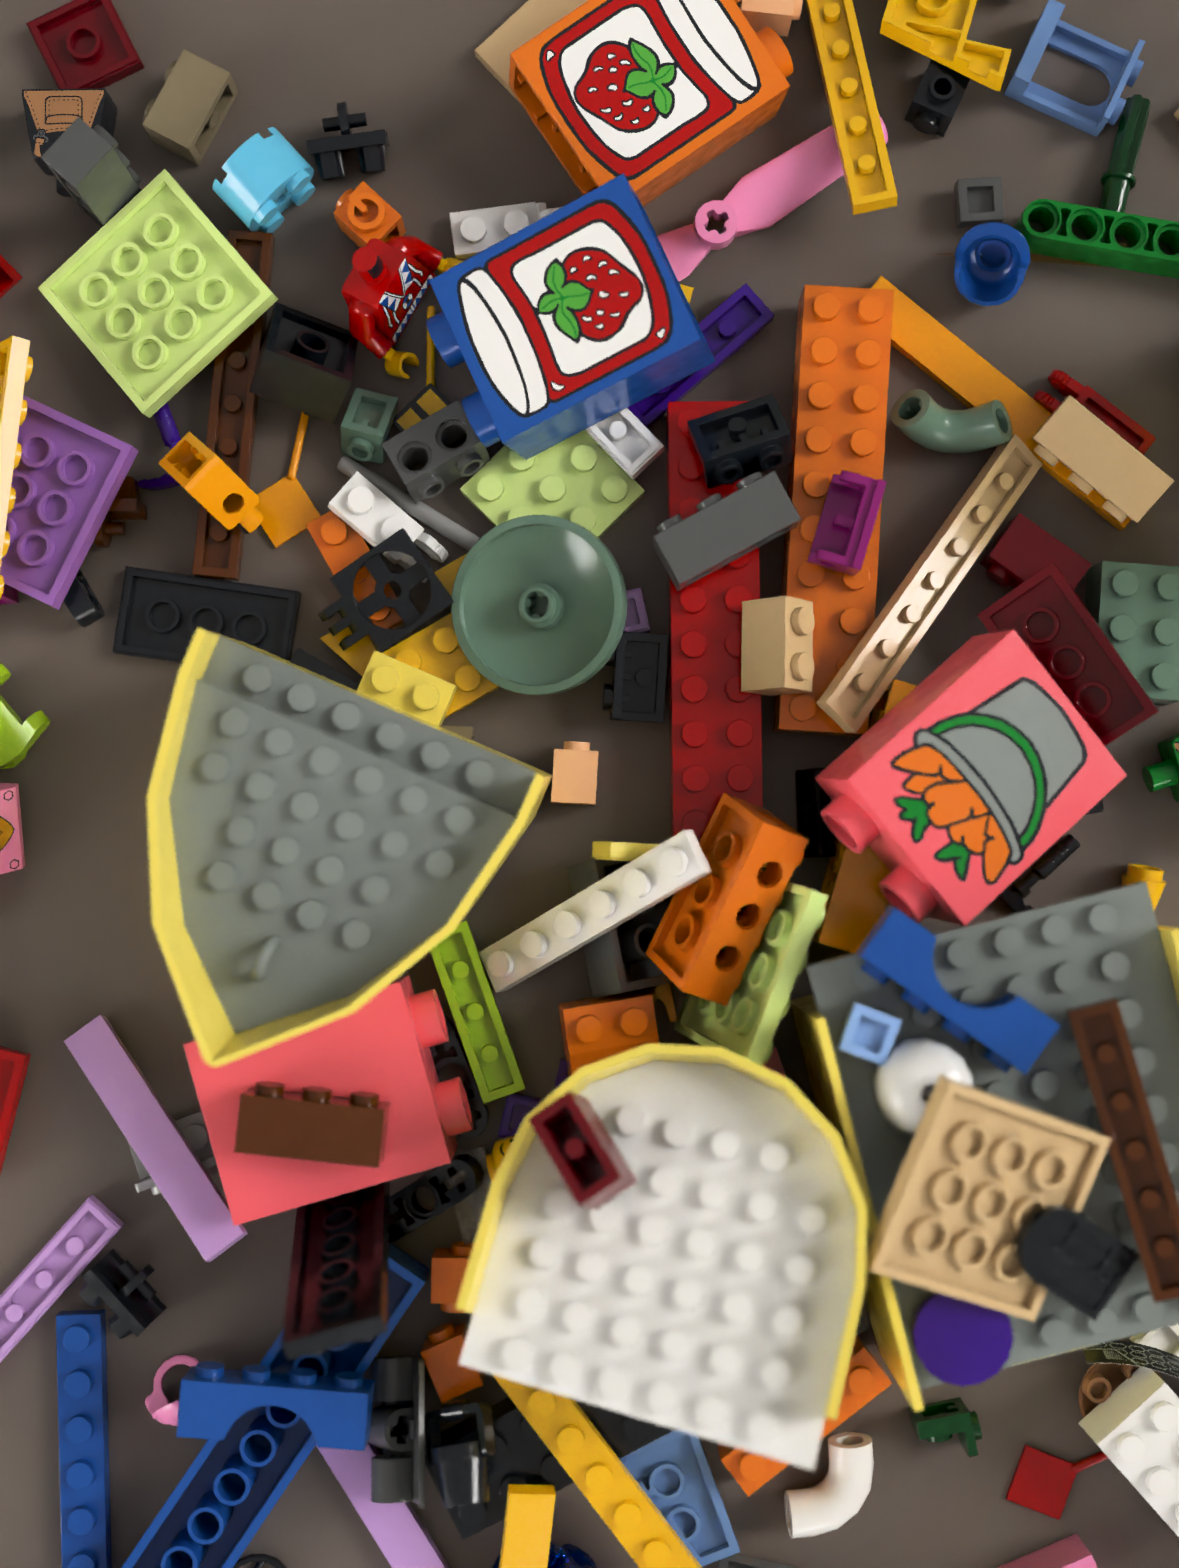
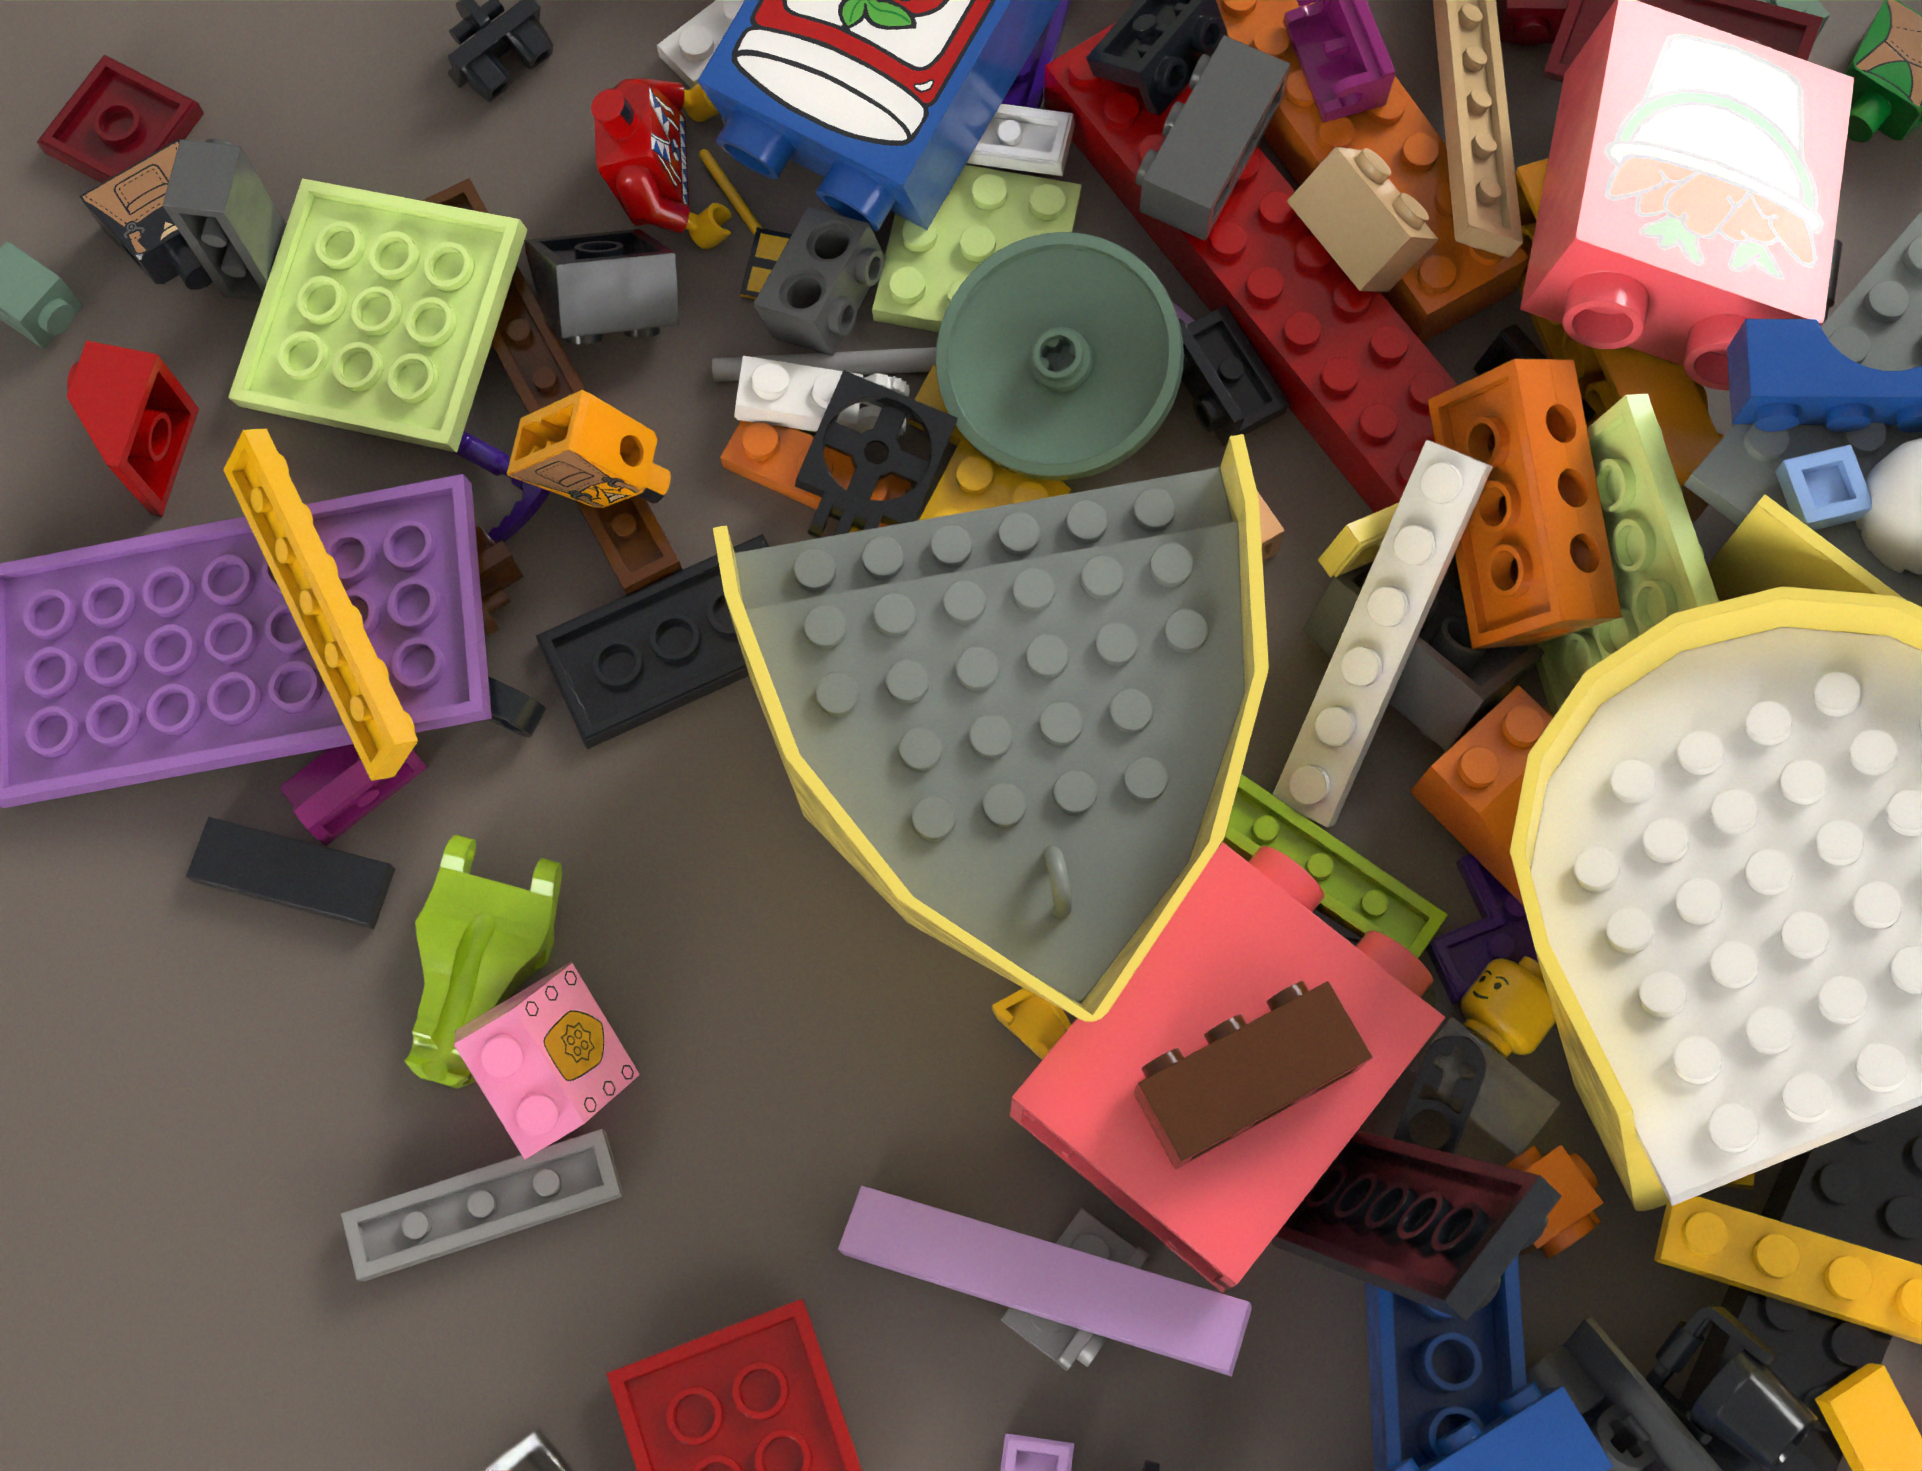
camera: 30 degrees left, 15 degrees down
(190, 106) = (286, 111): dark tan brick -> none
(264, 181) = (427, 124): medium azure brick -> none
(285, 503) = (685, 452): light orange piece -> none
(366, 216) = (564, 95): orange brick -> none
(367, 425) = (720, 311): sand green bracket -> none
(442, 1356) = (1621, 1306): orange brick -> none
(582, 1150) = (1616, 826): dark red brick -> none

